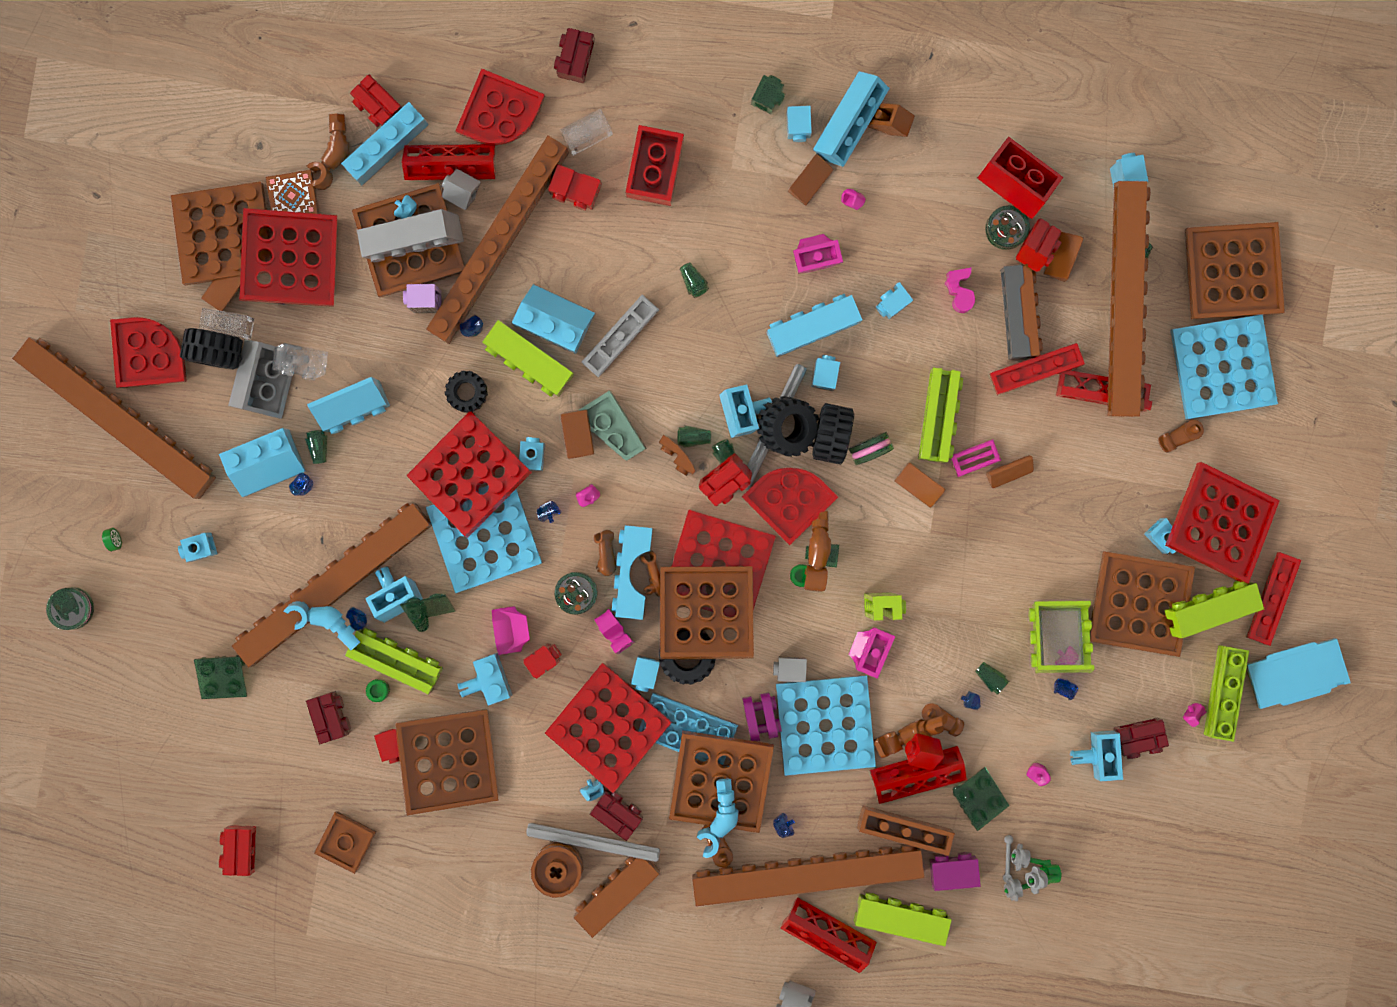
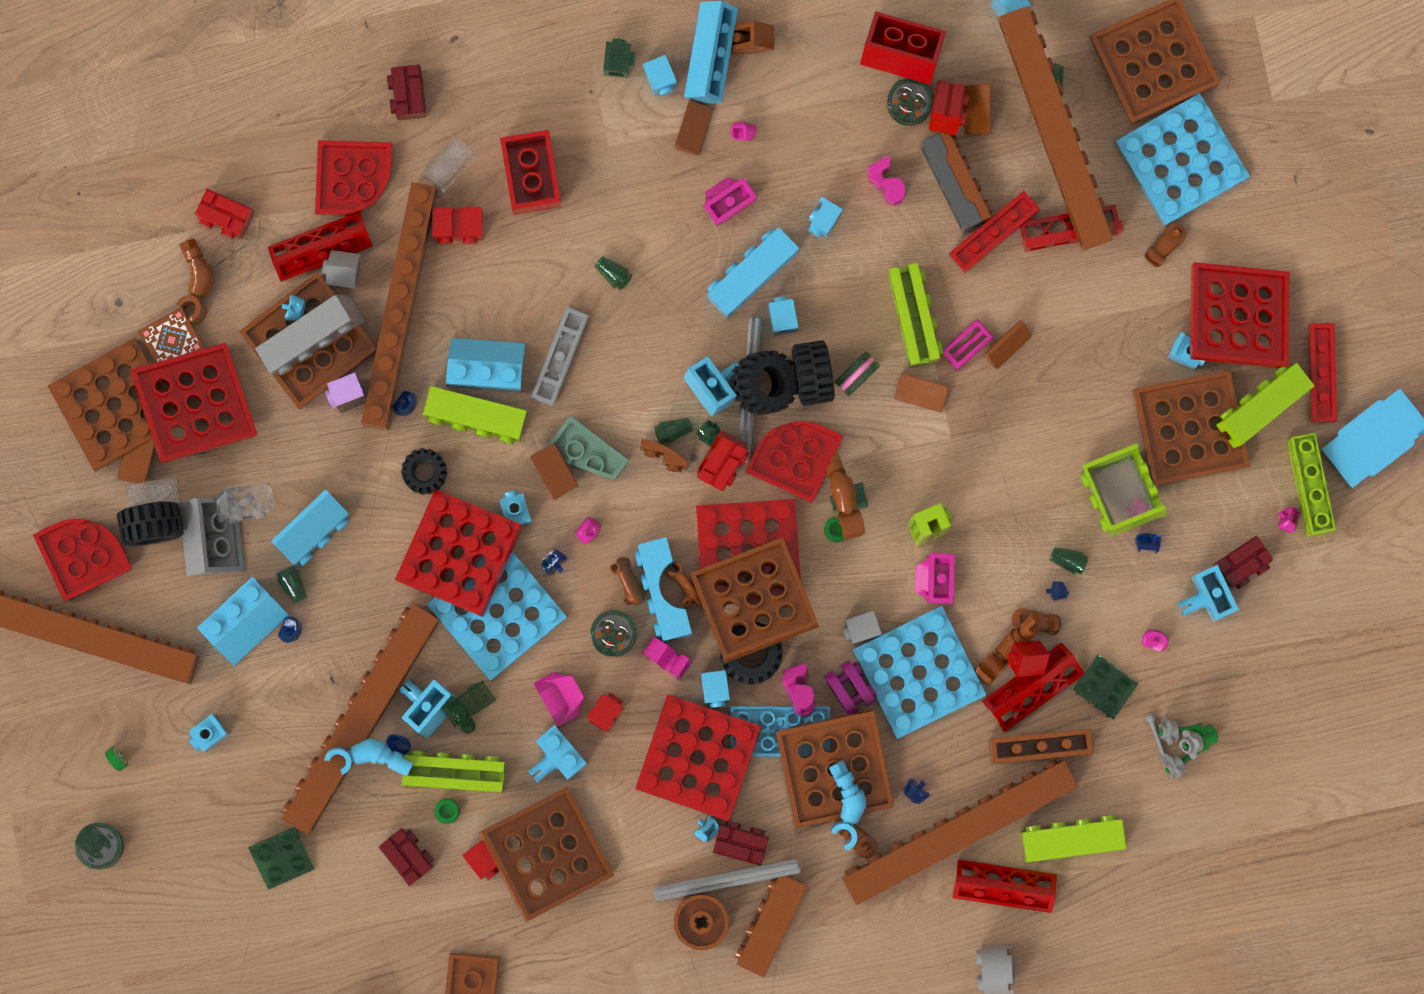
camera: 25 degrees left, 5 degrees down
(385, 143) = (248, 252): medium azure brick -> none
(717, 710) = (801, 695): none -> dark pink leg
(954, 872) = (1108, 771): magenta brick -> none

